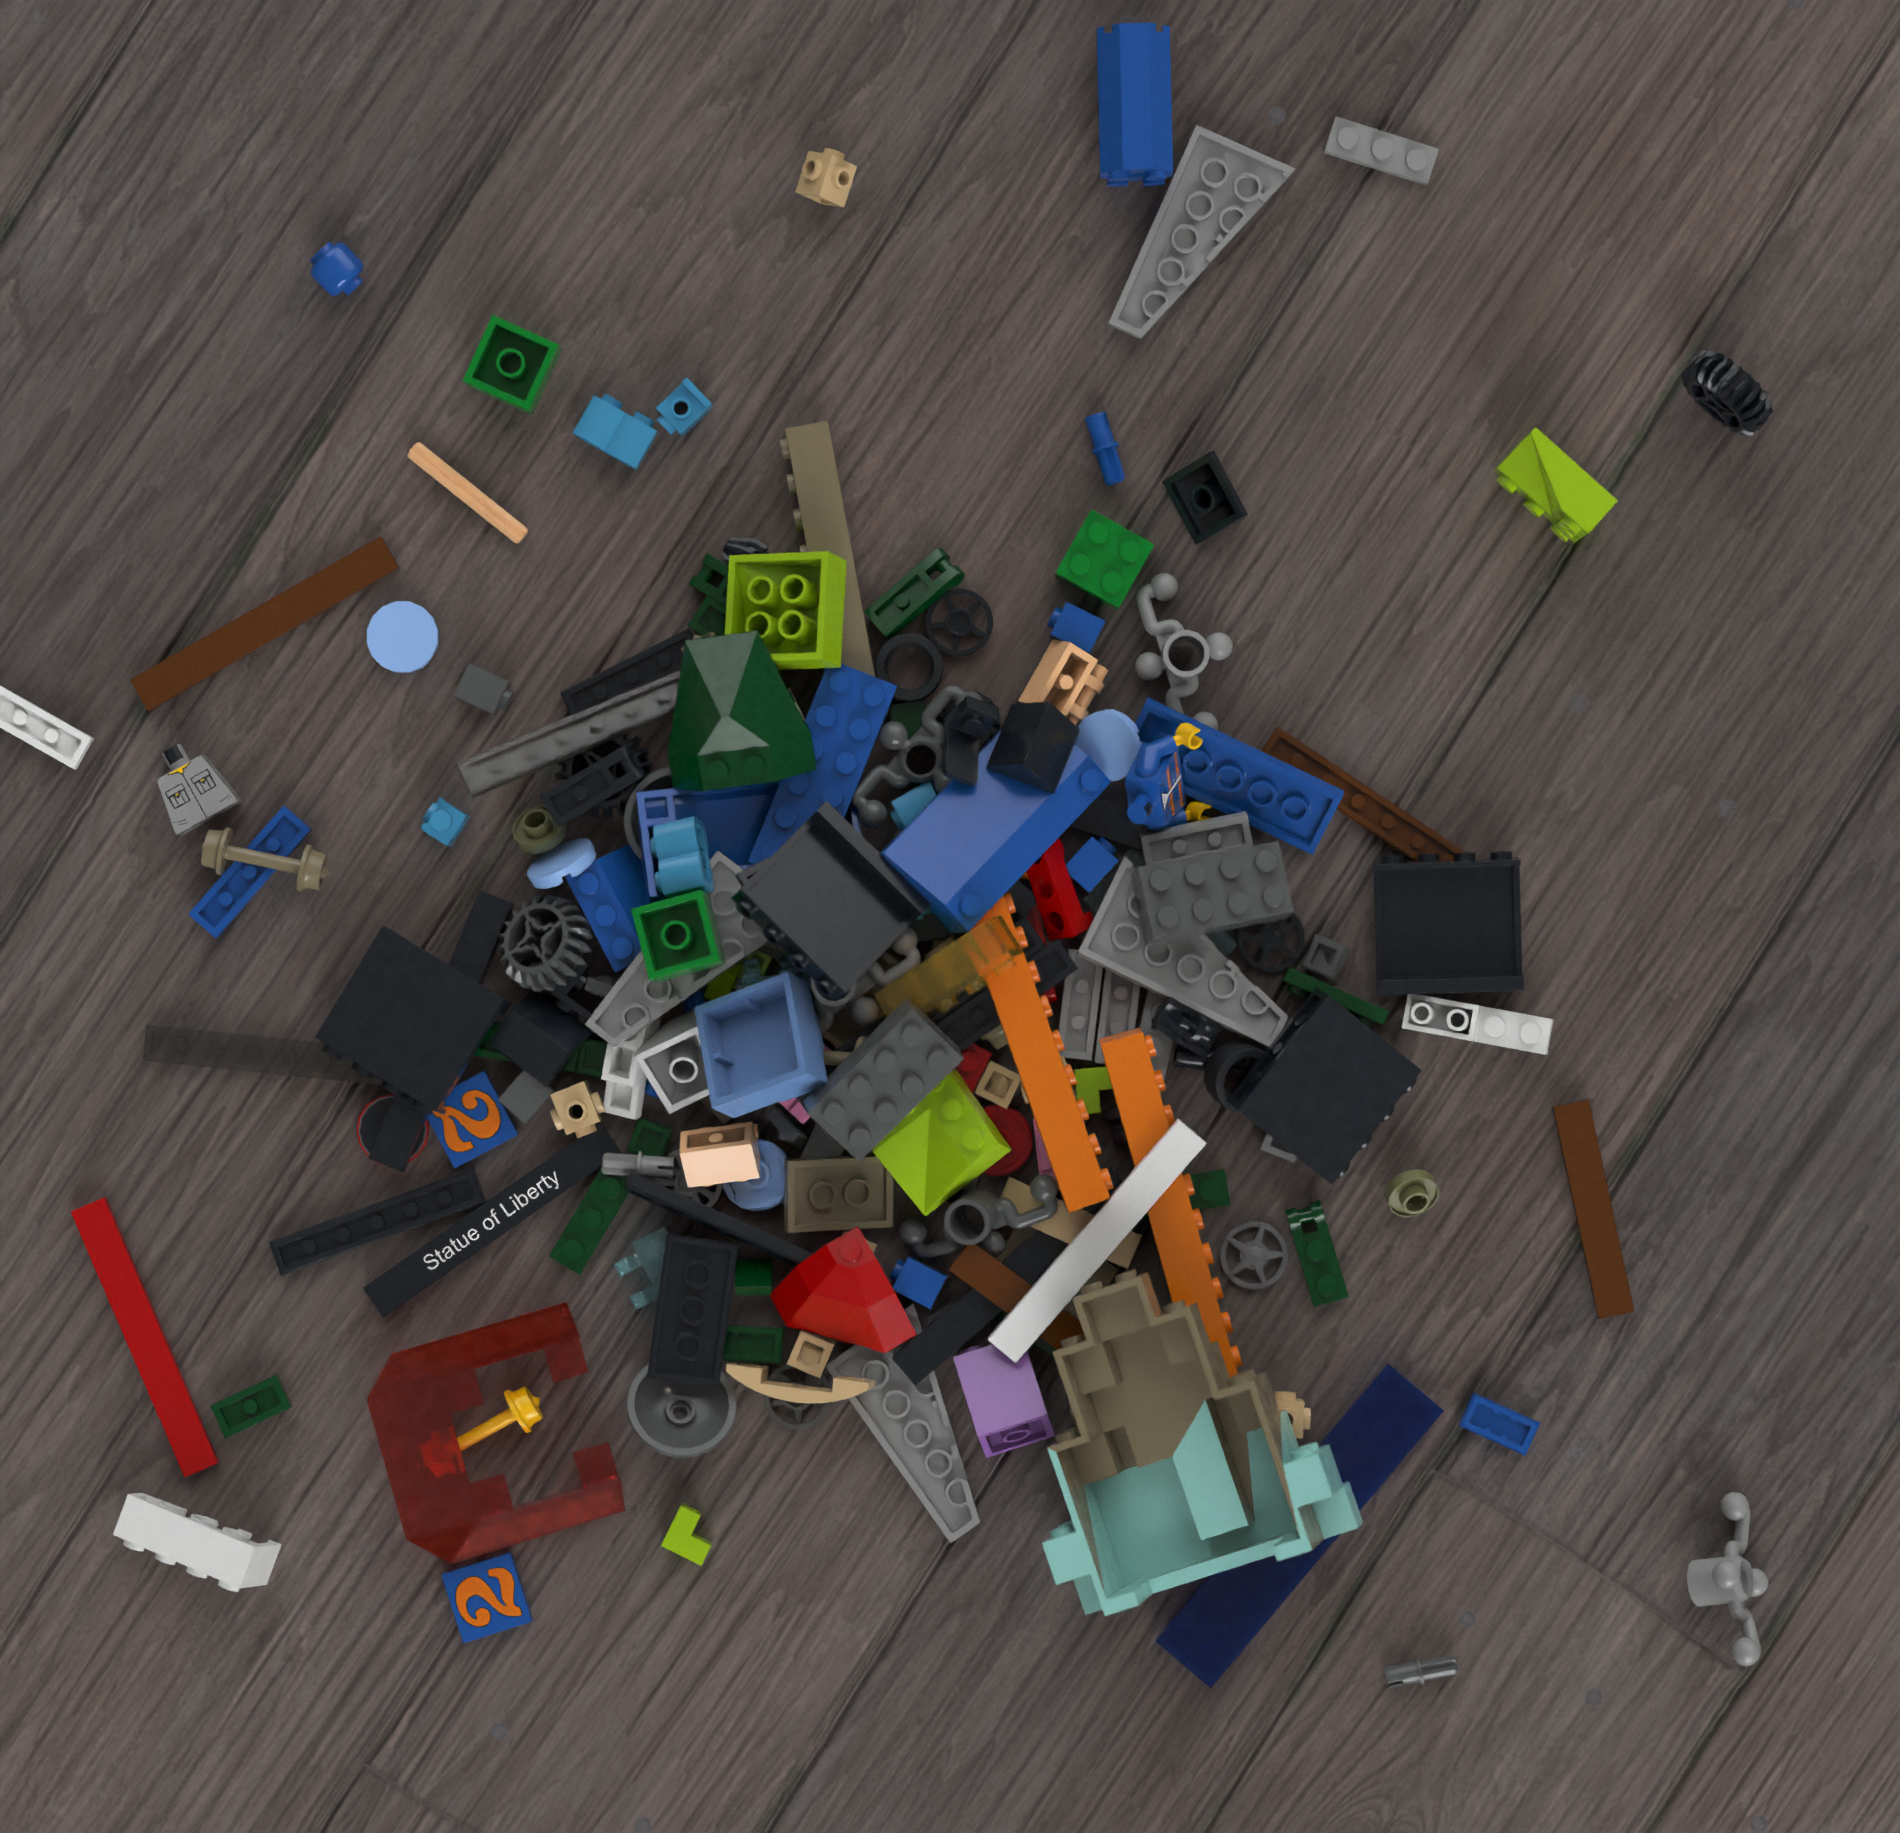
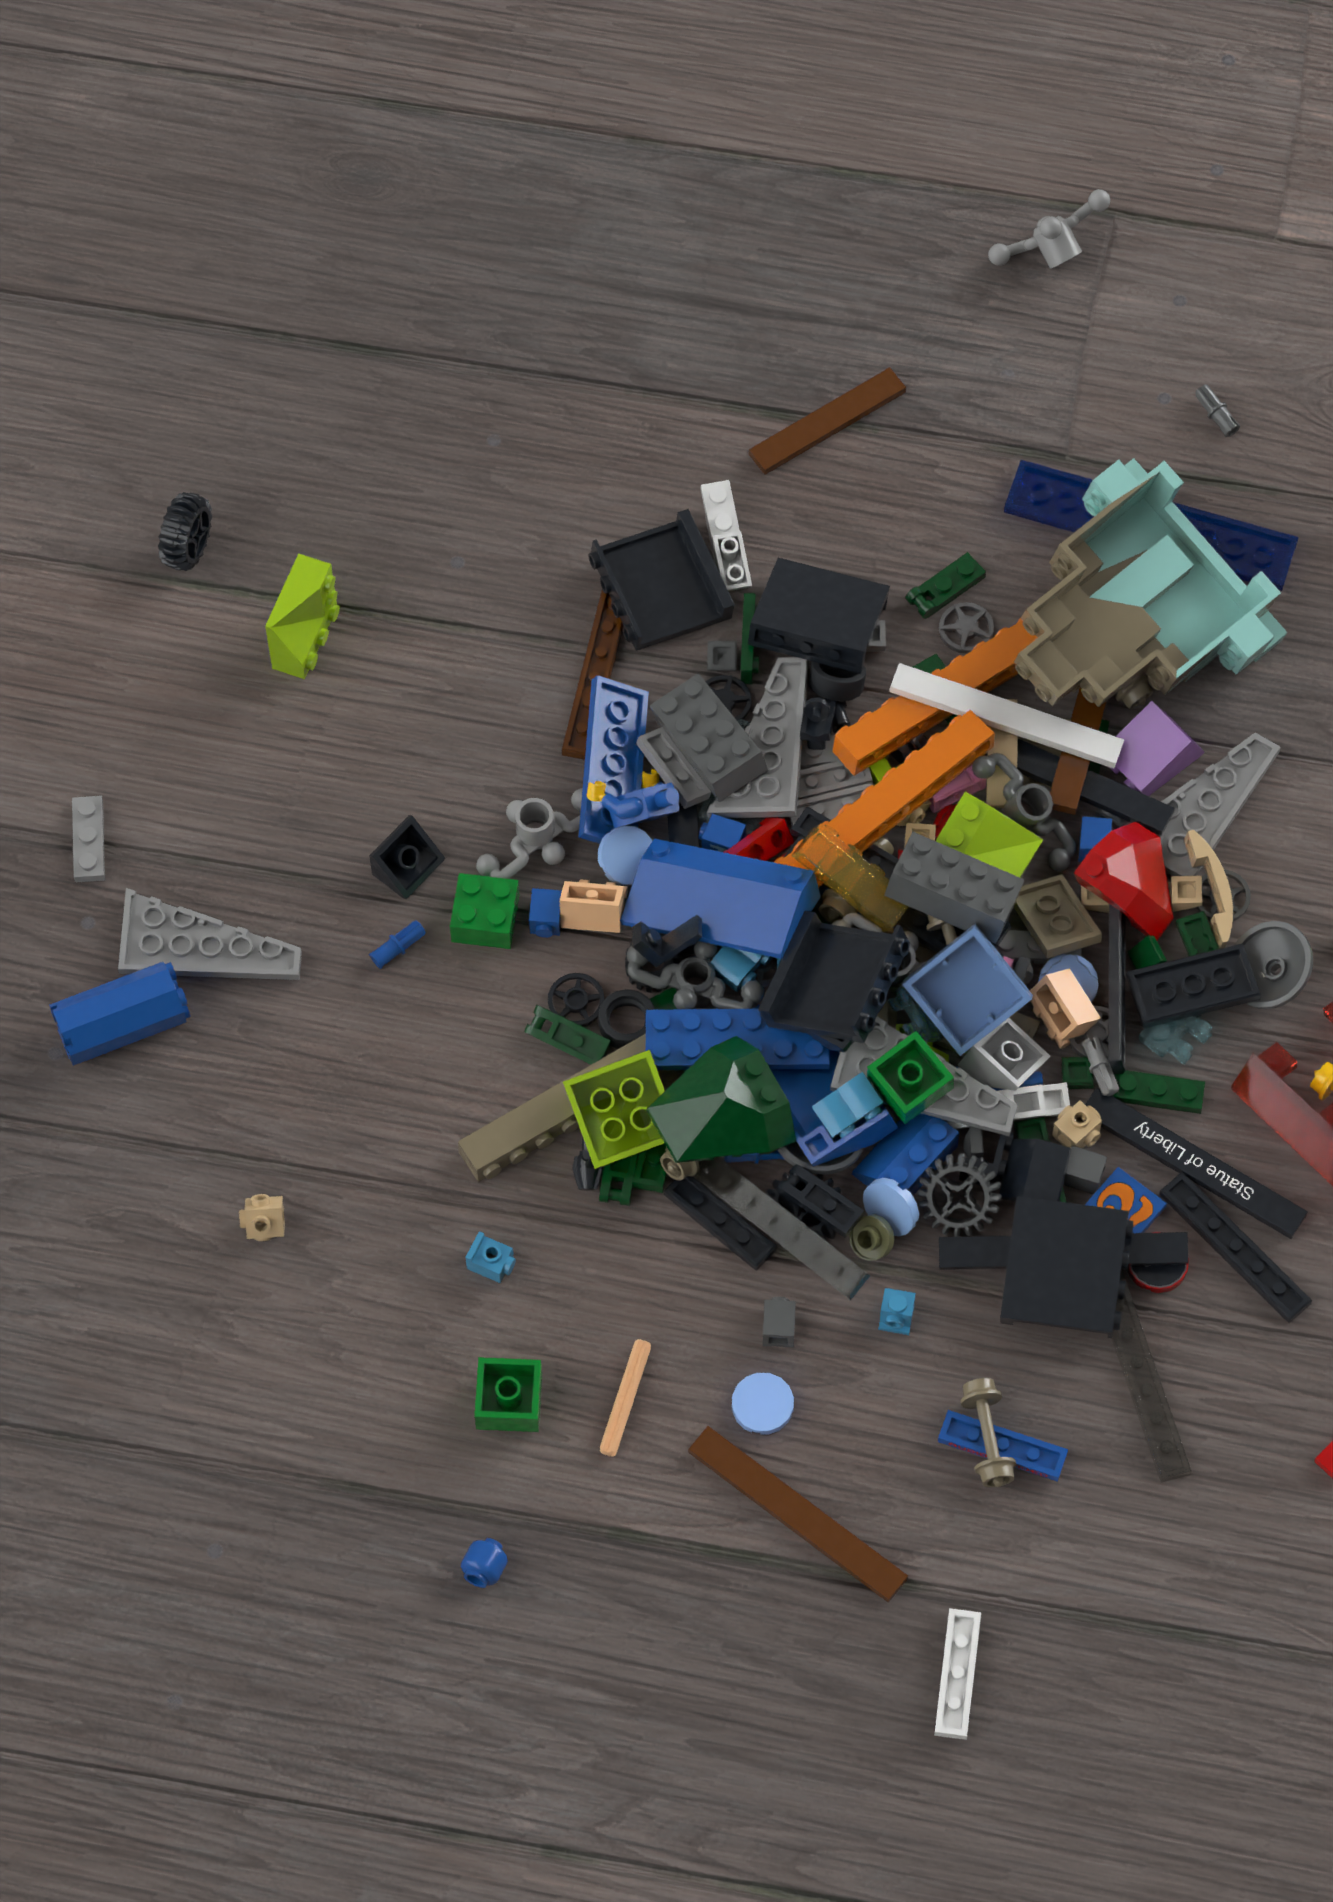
camera: 105 degrees left, 25 degrees down
(193, 790) = (957, 1512): light grey torso -> none
(615, 431) = (530, 1301): dark azure brick -> none
(1034, 745) = (650, 895): black slope -> none
(1411, 1193) = (871, 536): olive plate -> none
(1499, 1423) = (1013, 424): blue plate -> none

